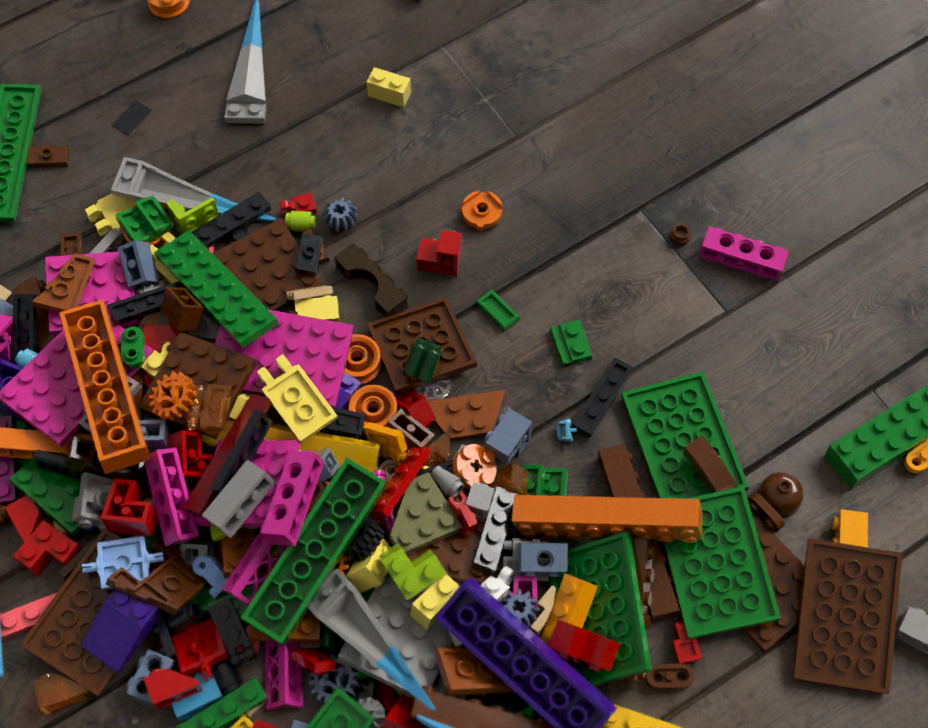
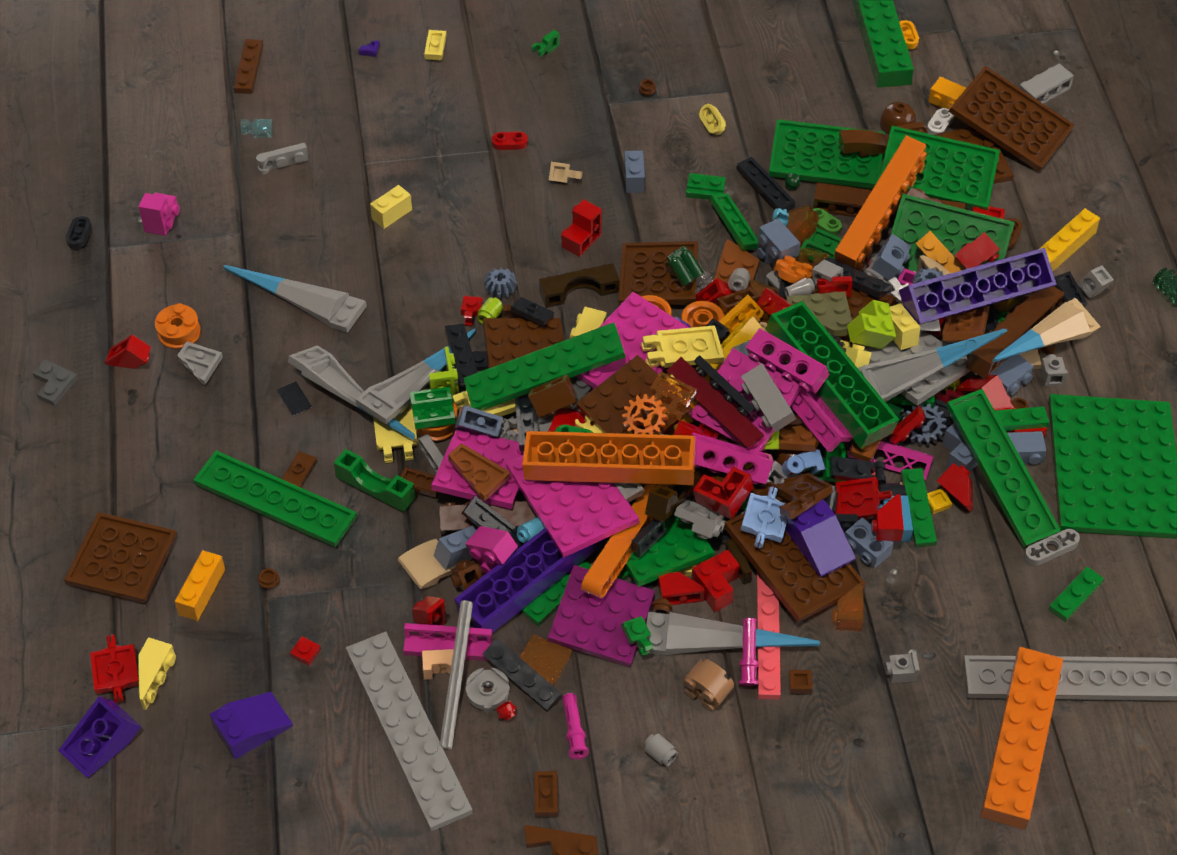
camera: 65 degrees left, 10 degrees down
(57, 196) = (393, 491): none -> green arch
(136, 30) = (199, 360): none -> light grey wing
(160, 127) = (327, 372): none -> light grey plate
(309, 292) = (568, 324): tan tile -> none
(440, 420) = (739, 280): none -> light grey brick
(479, 220) = (550, 202): orange plate -> none
(498, 310) = (650, 219): green tile -> none
(512, 207) = (561, 172): none -> tan plate
(533, 385) = (734, 221): none -> green plate
(535, 144) = (509, 140): none -> red plate
(549, 268) = (634, 171): none -> sand blue brick
(556, 452) = (802, 222): none -> clear orange slope
(584, 474) = (828, 222): none -> bright green plate
(621, 421) = (792, 181): none -> dark green hinge
(624, 32) = (435, 45): none -> light yellow plate
(667, 311) = (712, 119): none -> light yellow plate
(685, 121) = (549, 43): none -> green plate
(750, 261) = (688, 58): dark pink brick -> none
(803, 535) = (940, 121): none -> white plate

